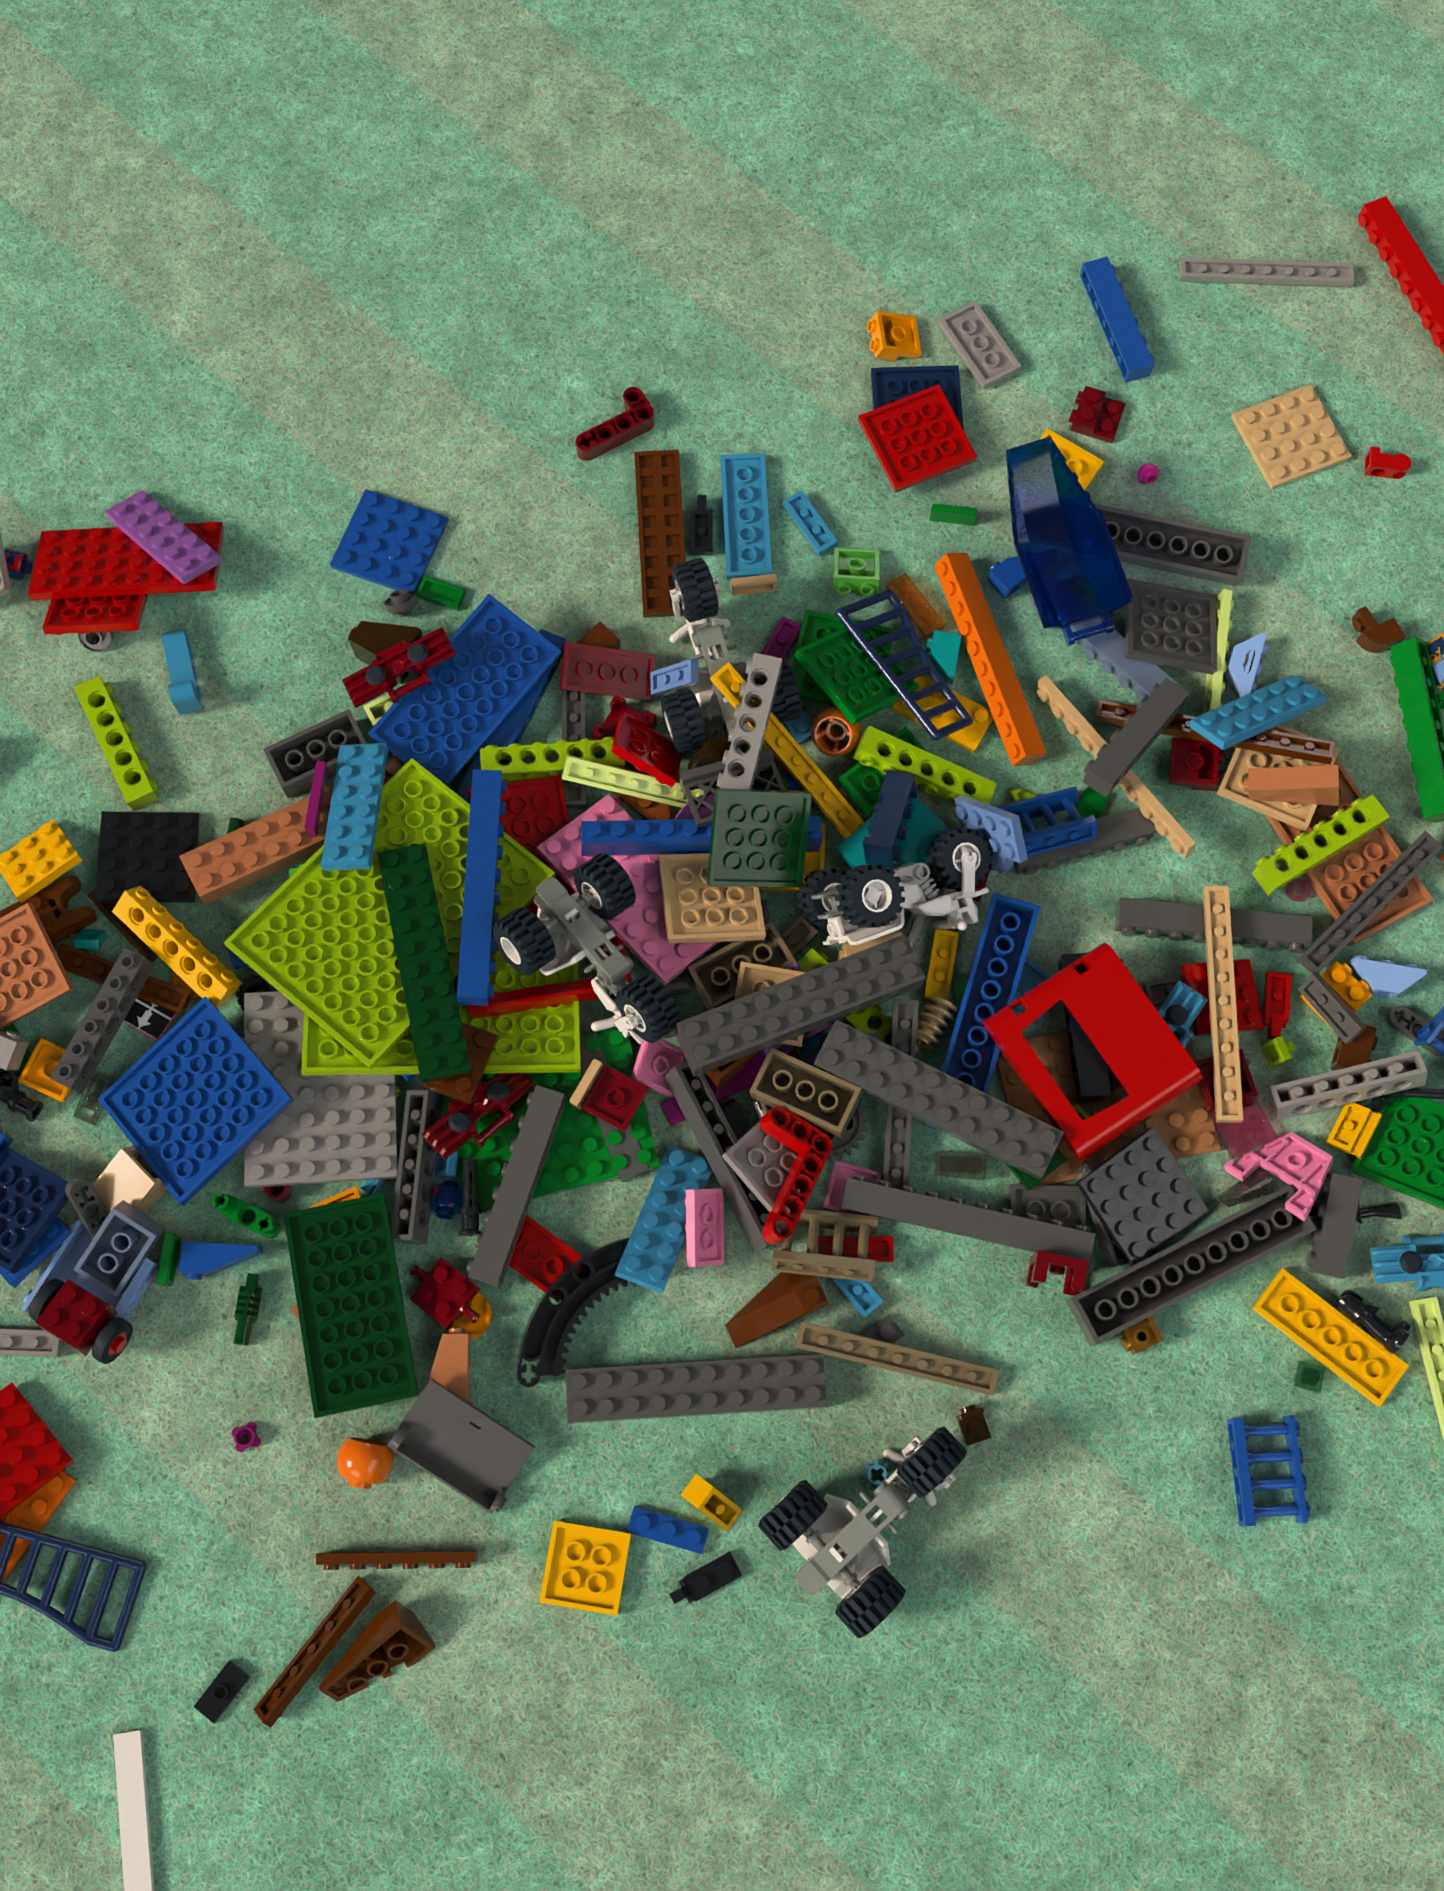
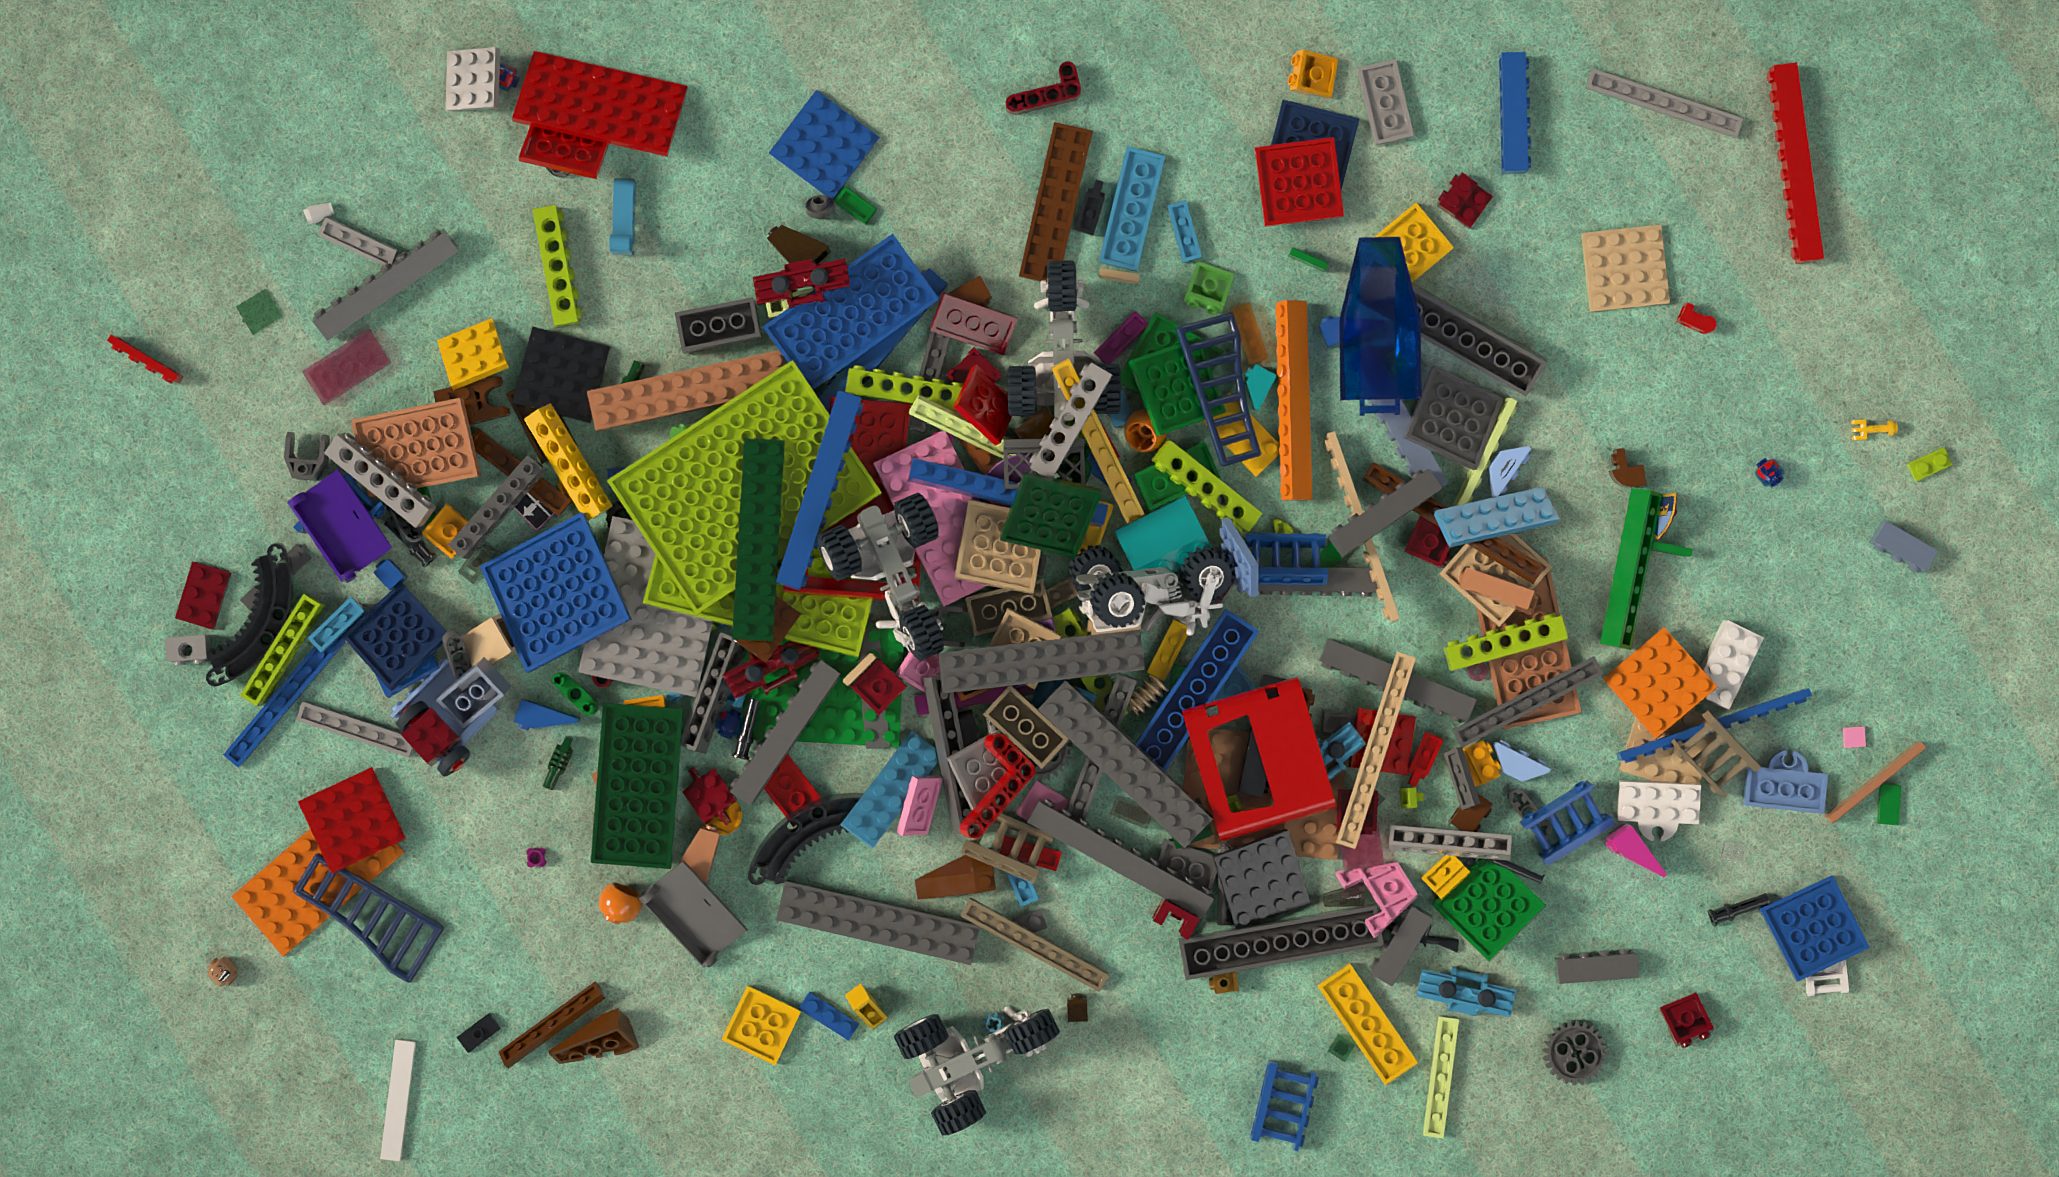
camera: 25 degrees right, 15 degrees up
(90, 939) = (501, 431): teal plate -> none
(163, 537) = (634, 92): medium lavender plate -> none
(168, 1259) = (507, 708): green tile -> none
(316, 799) = (707, 374): magenta tile -> none
(354, 807) = (736, 391): dark azure plate -> none
(385, 1559) = (635, 982): reddish brown plate -> none
(674, 677) = (1025, 349): medium blue plate -> none
(707, 1579) = (847, 1059): black hinge -> none
(890, 819) = (1163, 524): dark blue wedge -> none
(1148, 473) = (1488, 269): dark pink plate -> none
(1363, 1313) = (1399, 1015): black piece -> none

